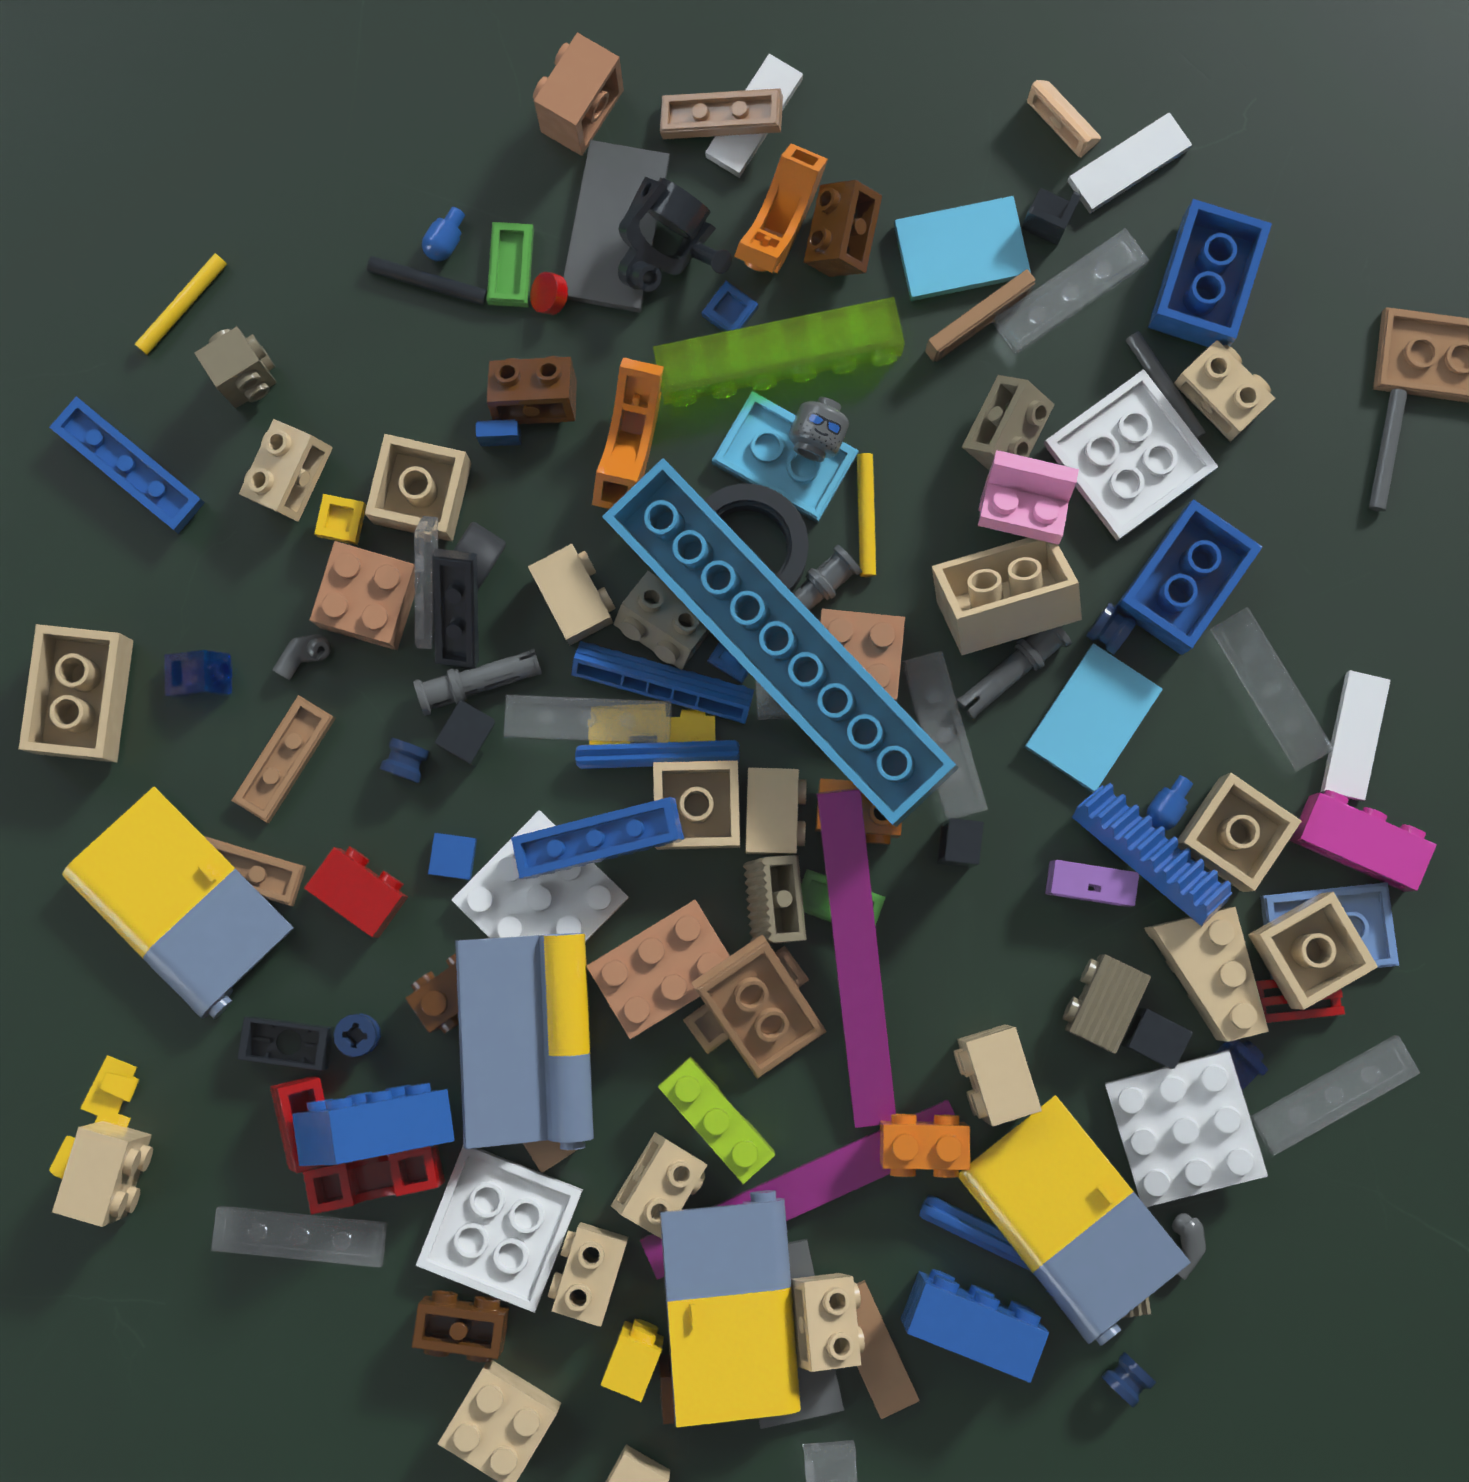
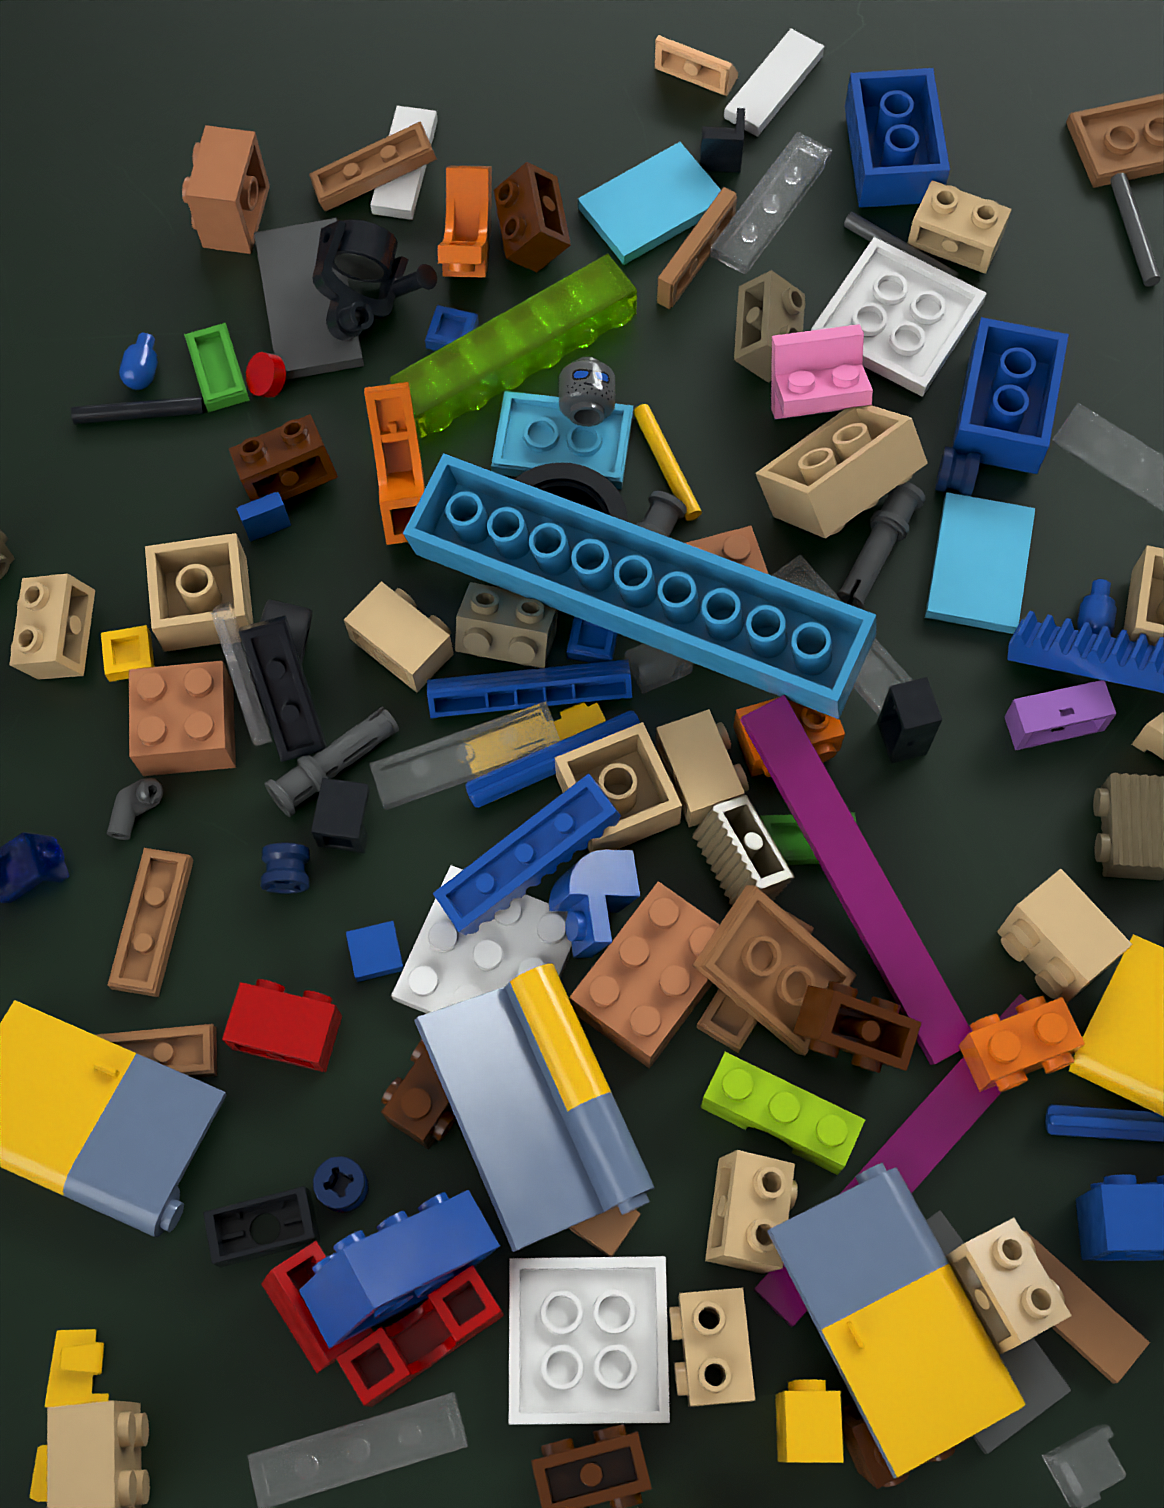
camera: 20 degrees left, 15 degrees down
(635, 879) = (588, 891): none -> brick
(802, 1080) = (867, 1030): none -> reddish brown brick

